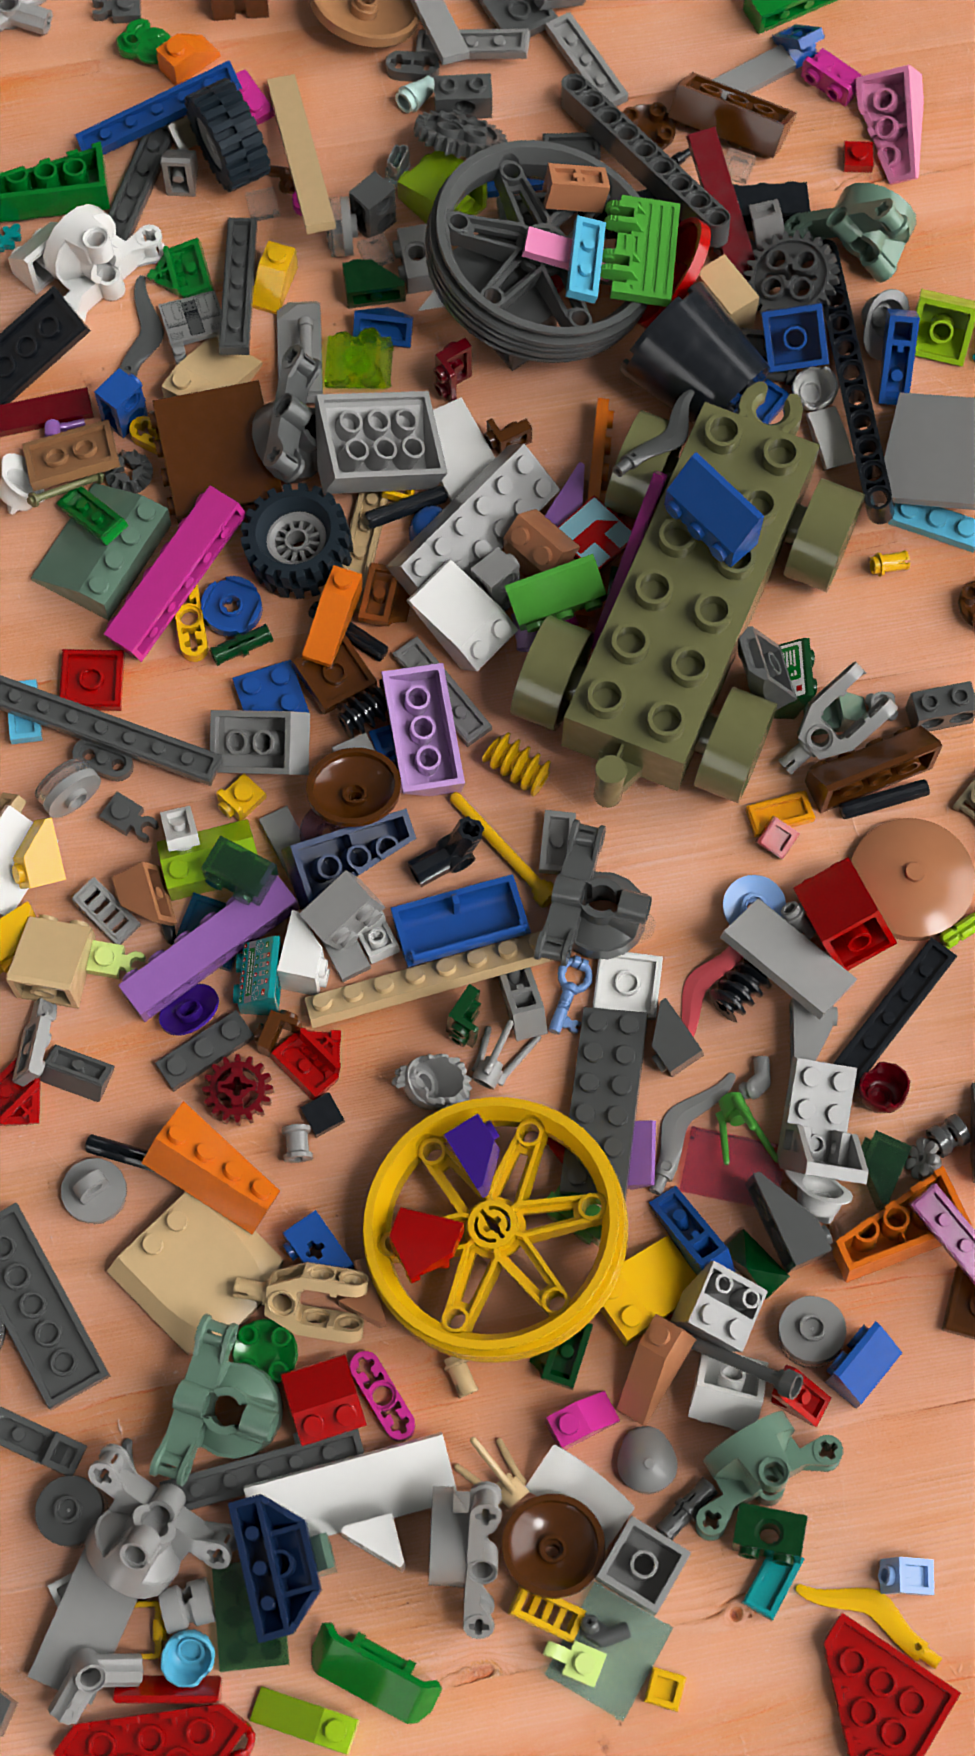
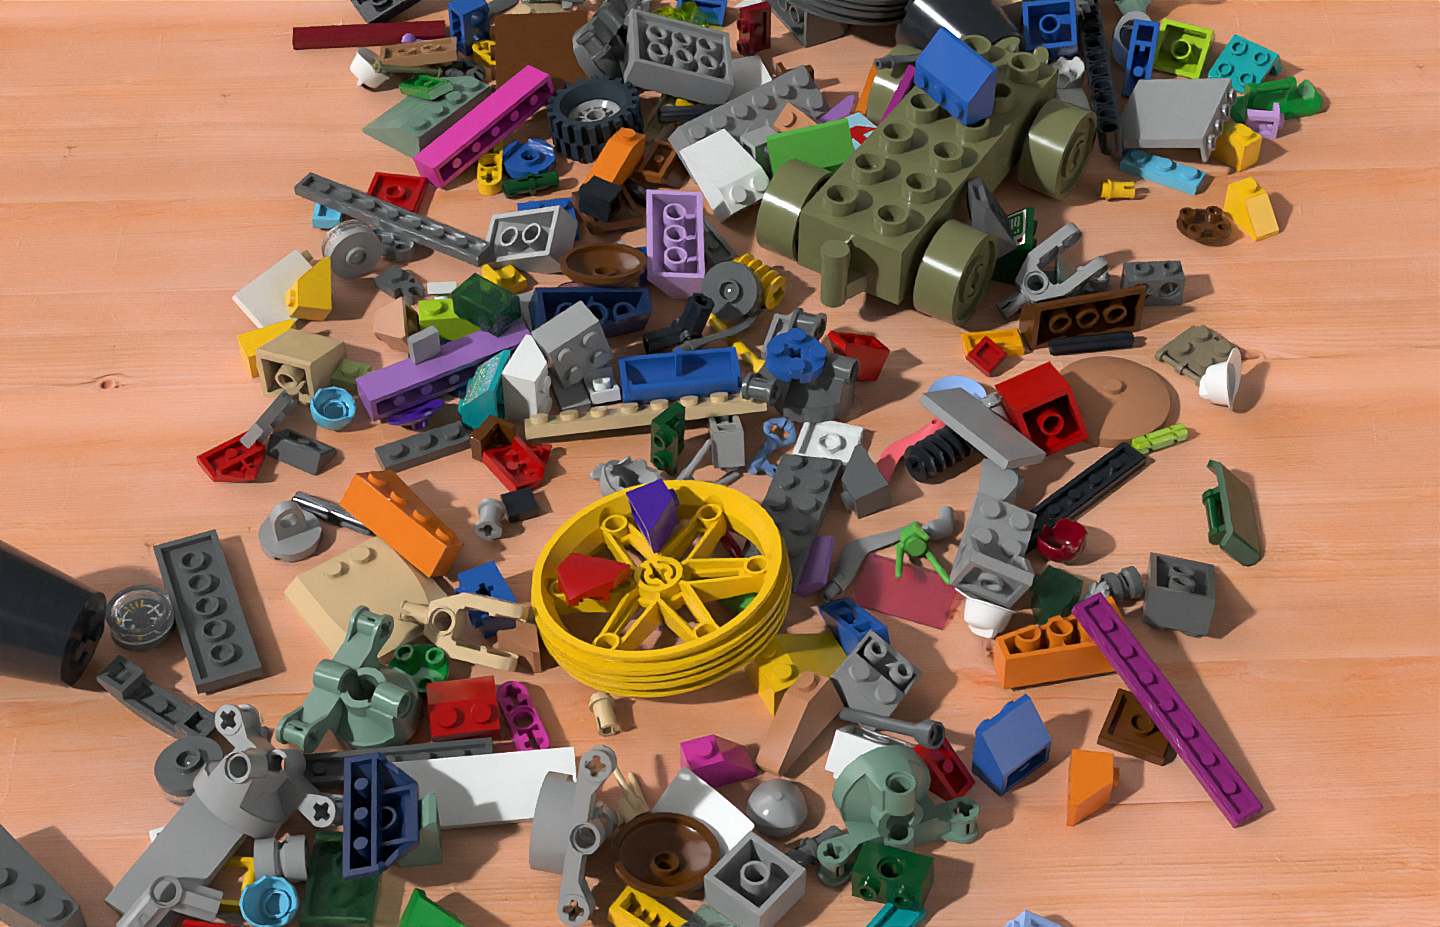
camera: 10 degrees right, 25 degrees down
(87, 892) = (353, 326): light grey slope -> none
(99, 1017) = (332, 408): none -> medium azure hair
(184, 937) = (424, 344): none -> light grey tile
(250, 1090) = (445, 474): dark red gear -> none
(327, 675) = (599, 199): none -> black brick
(363, 710) = (626, 229): black piece -> none
(378, 1538) = (484, 823): white slope -> none
(495, 791) = (733, 289): none -> dark grey piece
(503, 847) = (740, 326): none -> dark grey piece
(564, 1361) = (712, 706): dark green slope -> none
(603, 901) = (800, 344): none -> blue plate
(647, 865) = (865, 348): none -> red slope
(756, 1263) = (931, 676): dark green slope -> none
(791, 1228) = (952, 624): dark grey slope -> none
(812, 1332) = (961, 713): light grey piece -> none
(940, 1389) = (1089, 783): none -> orange slope

